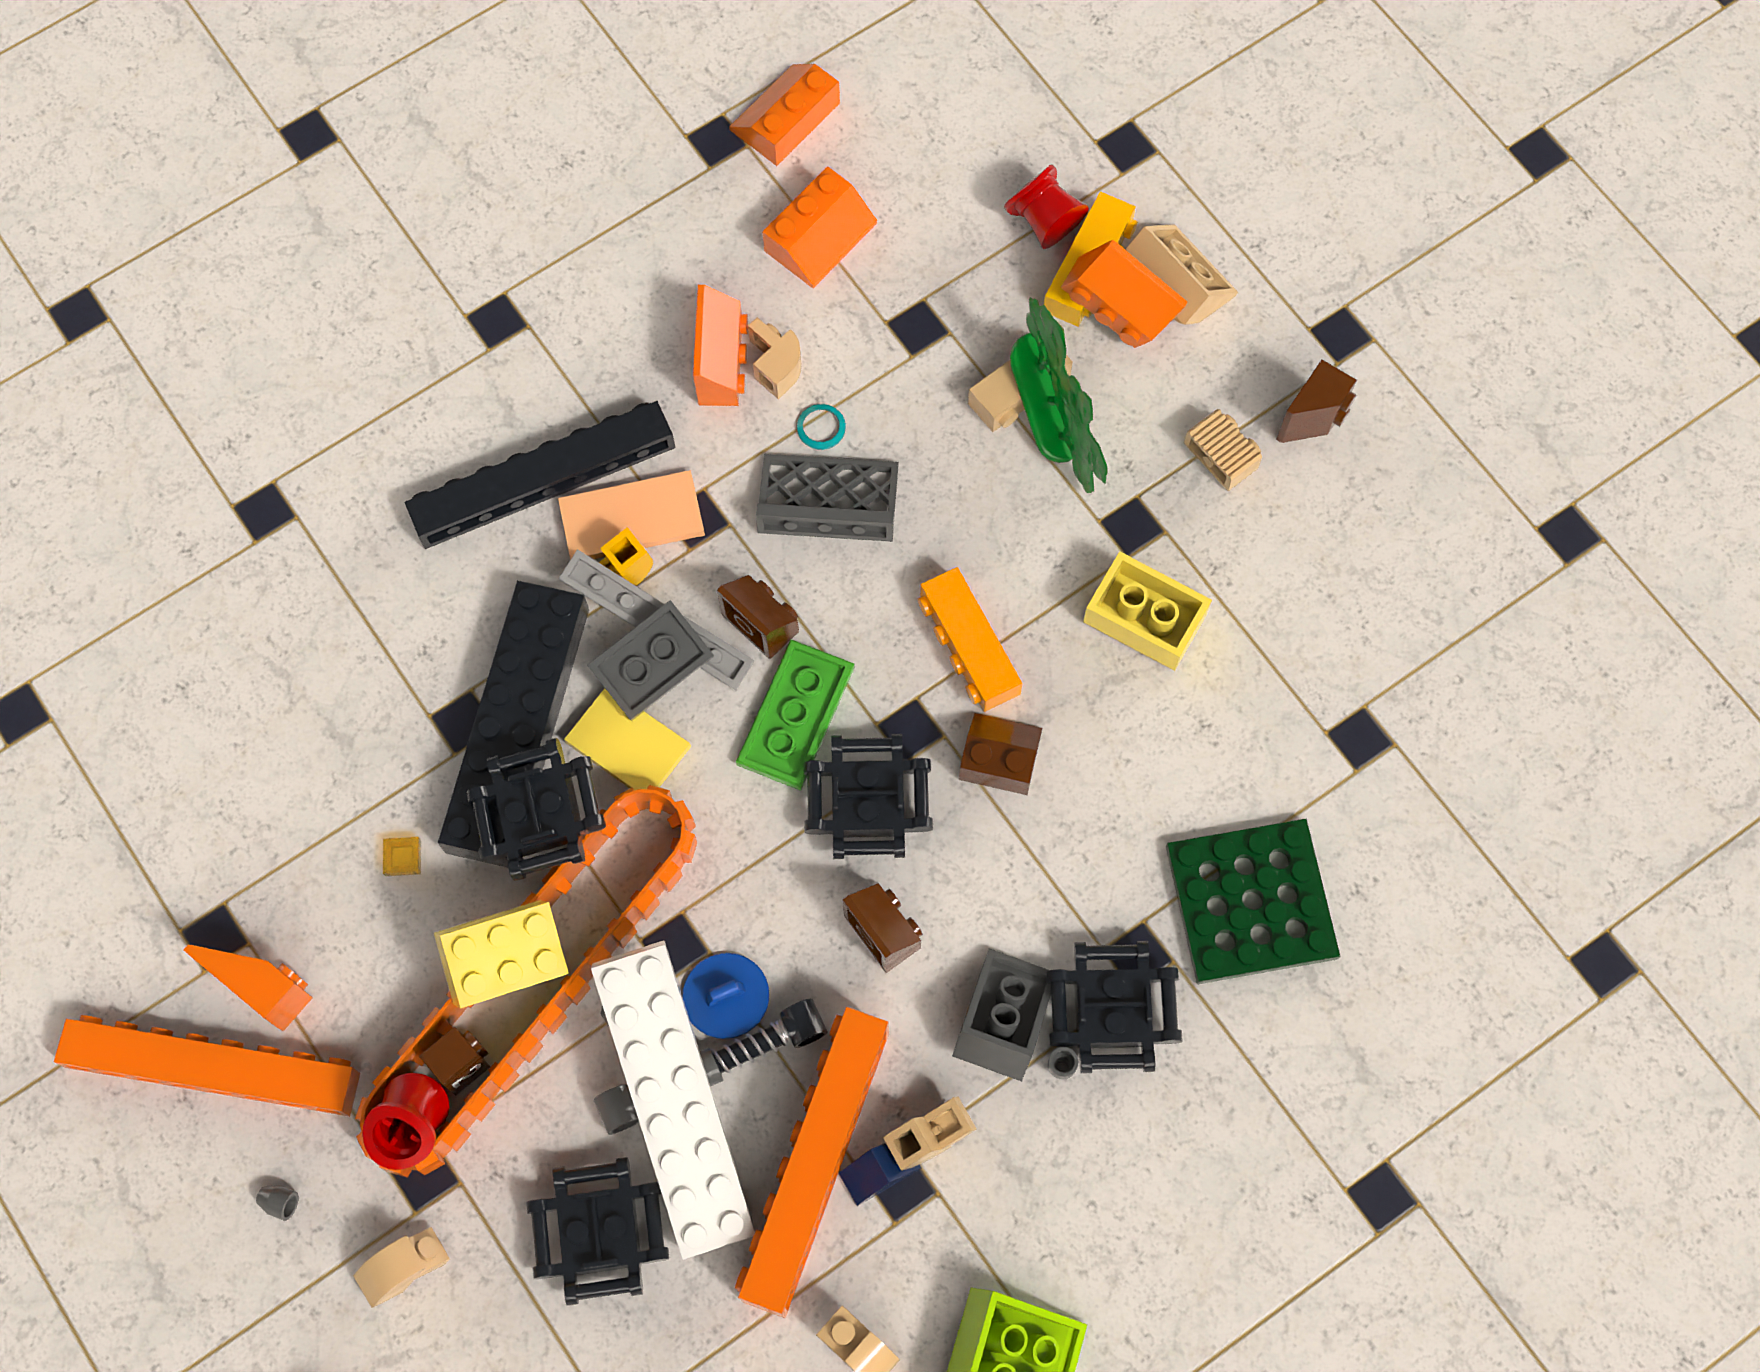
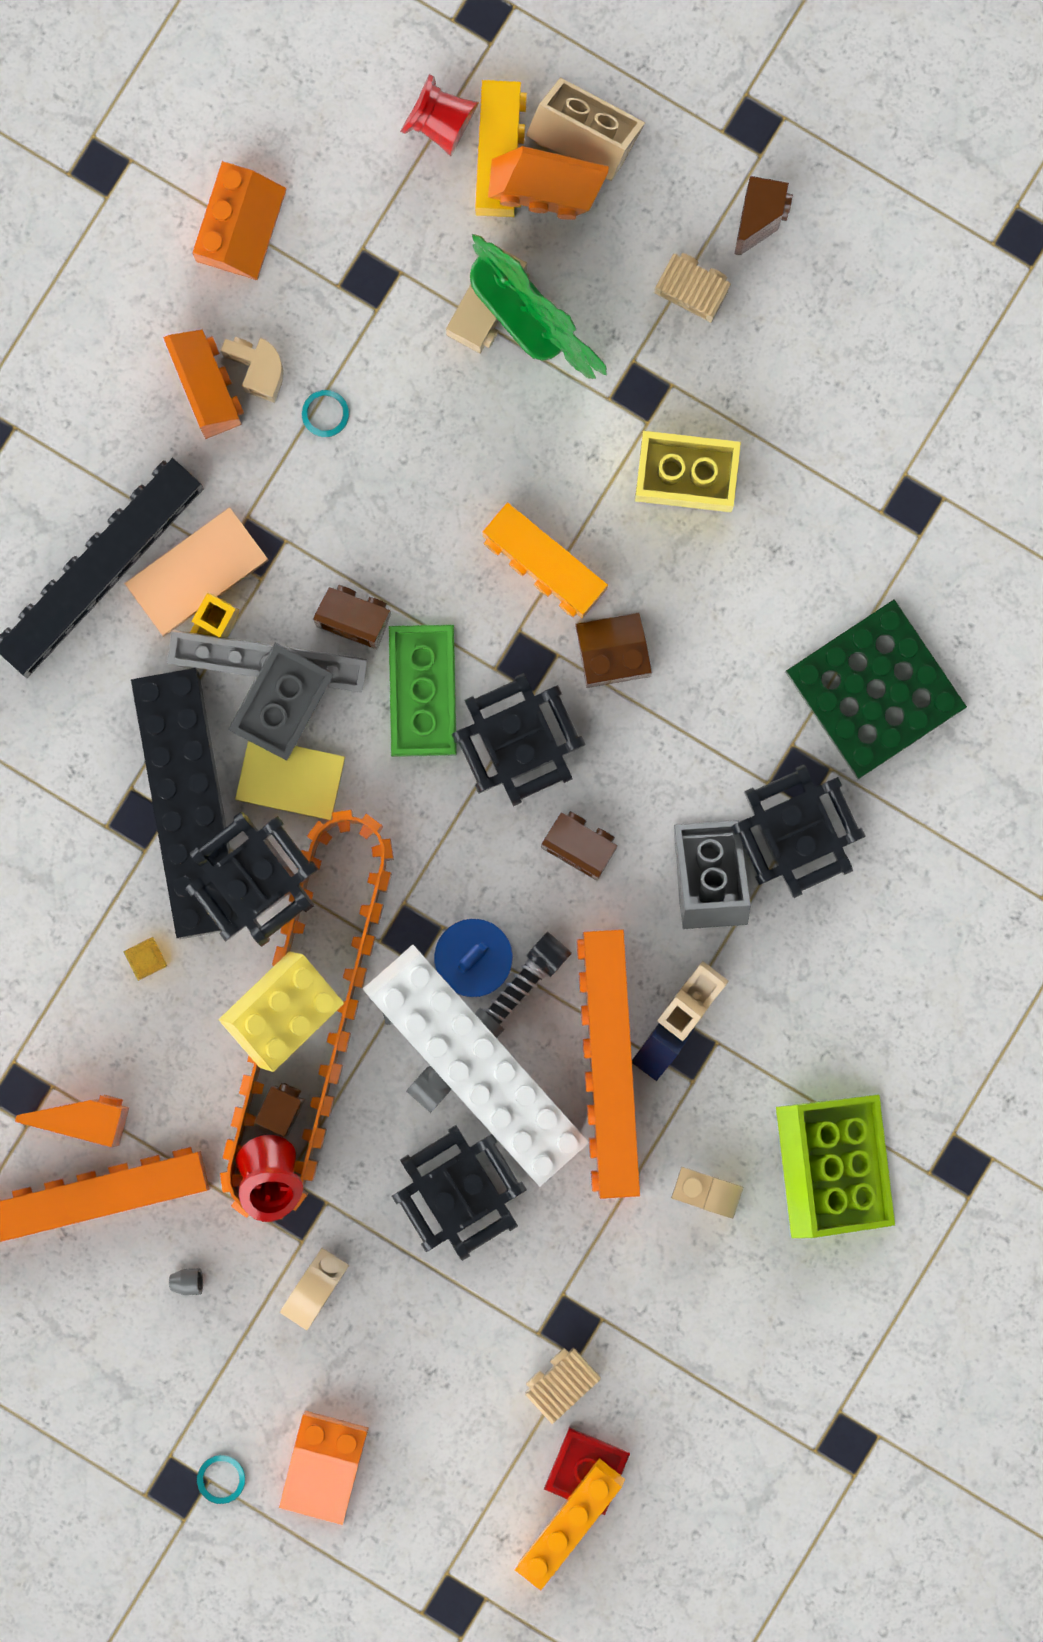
camera: 25 degrees left, 15 degrees up
(788, 111) = (152, 111): orange slope -> none
(825, 518) = (367, 505): dark grey fence -> none
(1065, 1055) = (782, 892): dark grey hose -> none

